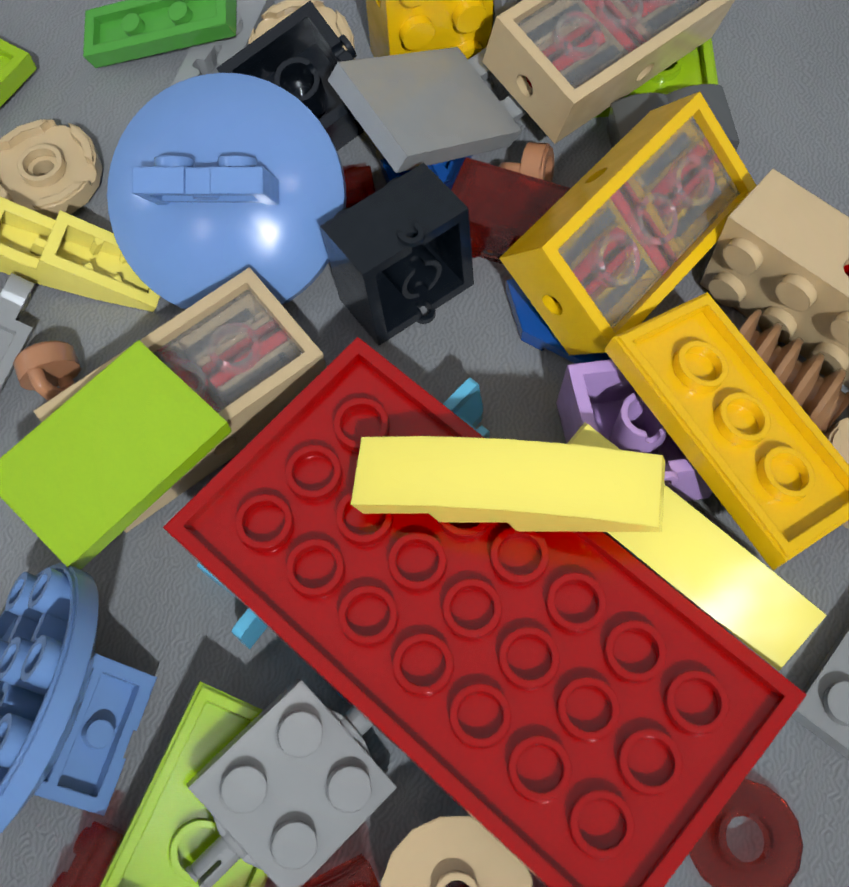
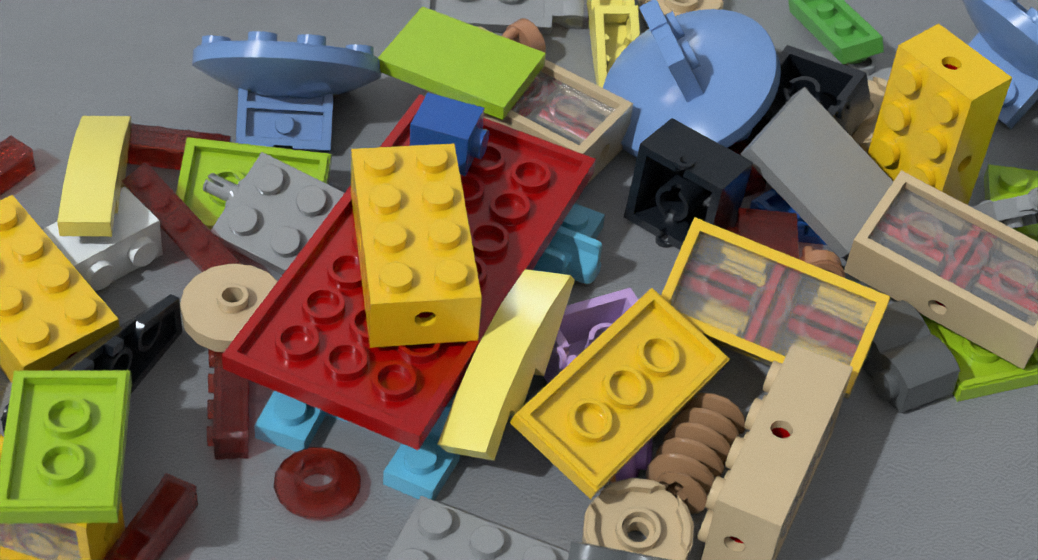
camera: 65 degrees right, 20 degrees down
(286, 507) = (451, 122): none -> blue brick
(500, 612) = (414, 246): none -> yellow brick
(511, 482) = (508, 238): light yellow slope -> none

